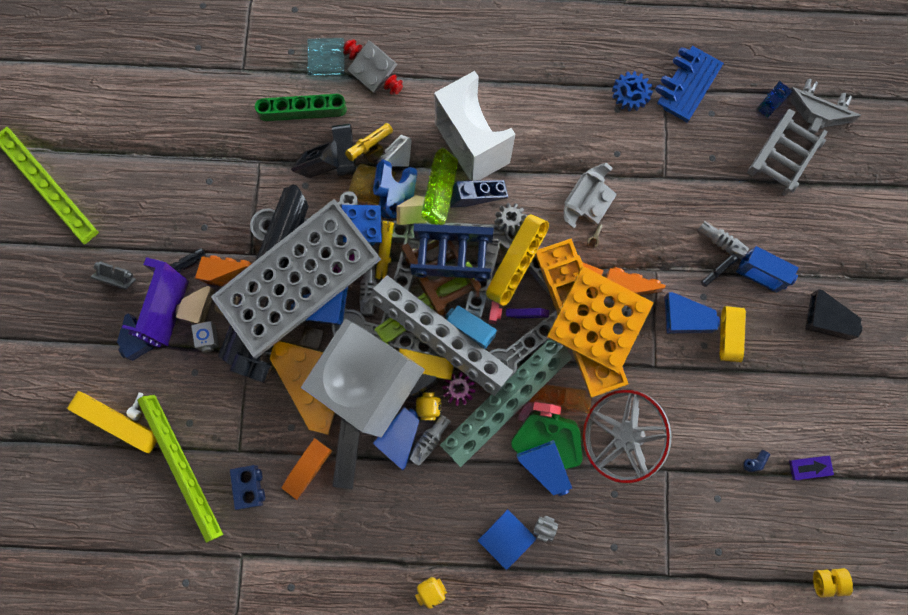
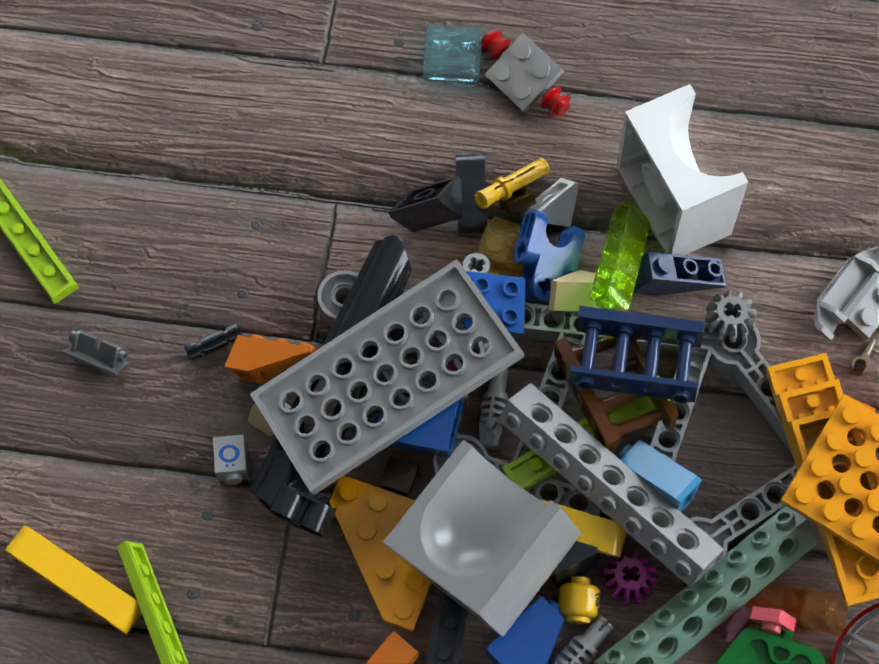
camera: 10 degrees right, 10 degrees down
(129, 345) = (116, 454): dark blue slope -> none
(132, 412) = (105, 567): white hand -> none
(159, 308) = (172, 400): dark purple panel -> none
(195, 307) = (219, 410): tan slope -> none
(293, 102) = (397, 117): green beam -> none
(384, 249) = (527, 343): yellow pin -> none
(495, 313) = (696, 460): coral plate -> none
(517, 259) = (737, 379): yellow beam -> none
(527, 313) = (749, 465): dark purple tile -> none

